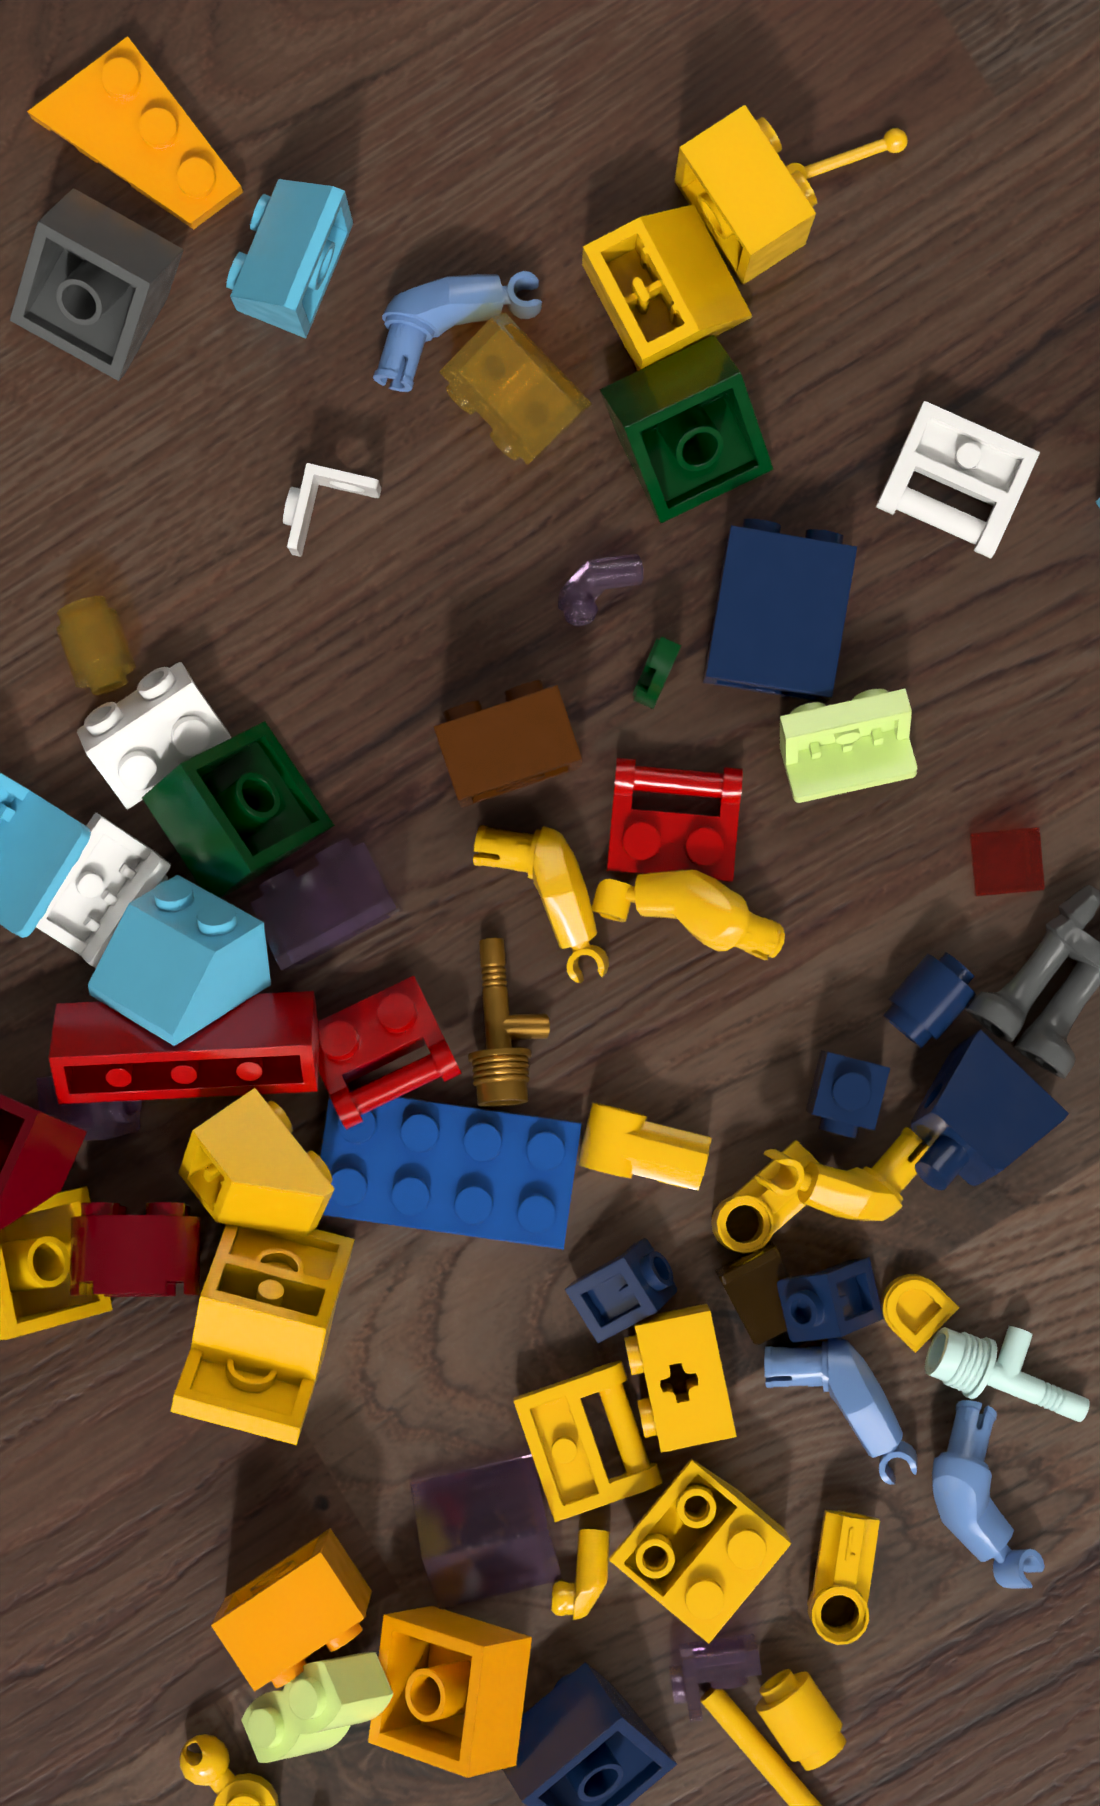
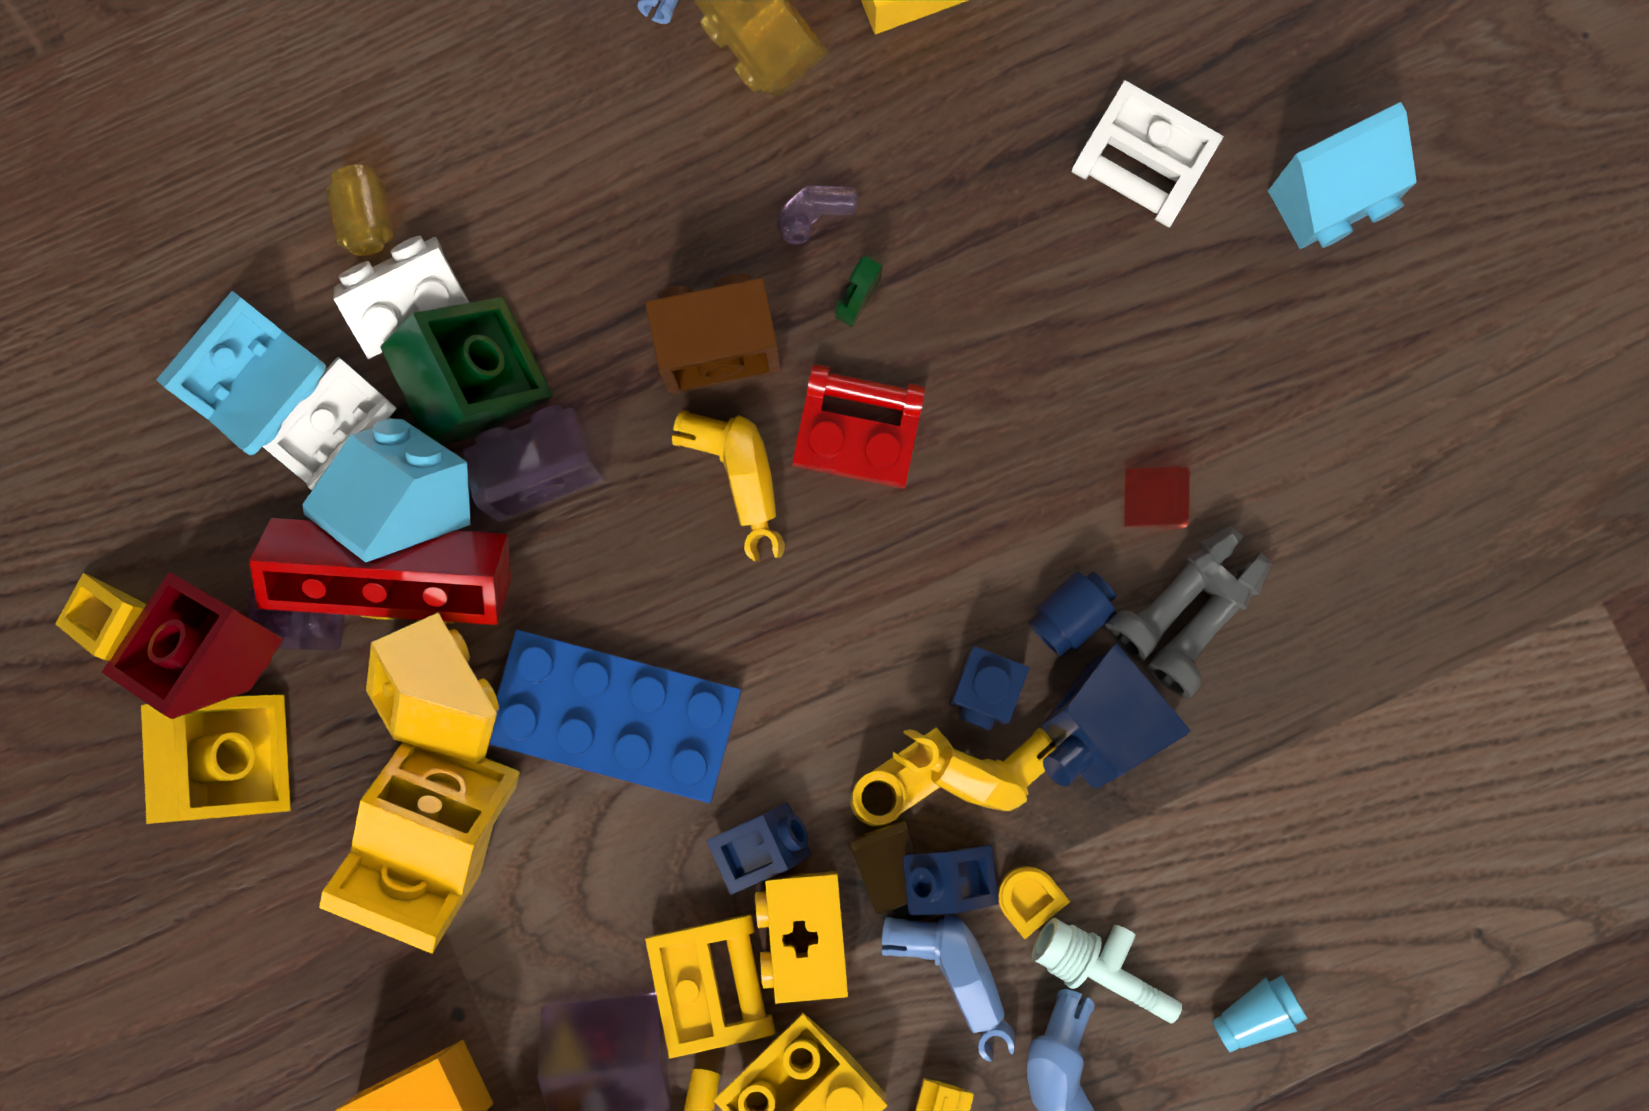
camera: 10 degrees right, 5 degrees down
(135, 1252) = (312, 756): dark red brick -> none
(301, 501) = (560, 106): white bracket -> none
(375, 1035) = (561, 587): red plate -> none
(500, 1069) = (673, 629): pearl gold piece -> none
(628, 1144) = (784, 714): yellow piece -> none
(688, 428) = (911, 82): dark green slope -> none
(700, 903) = (873, 500): yellow arm -> none
(780, 611) = (974, 250): dark blue brick -> none
(847, 744) = (1023, 372): yellowish green bracket -> none

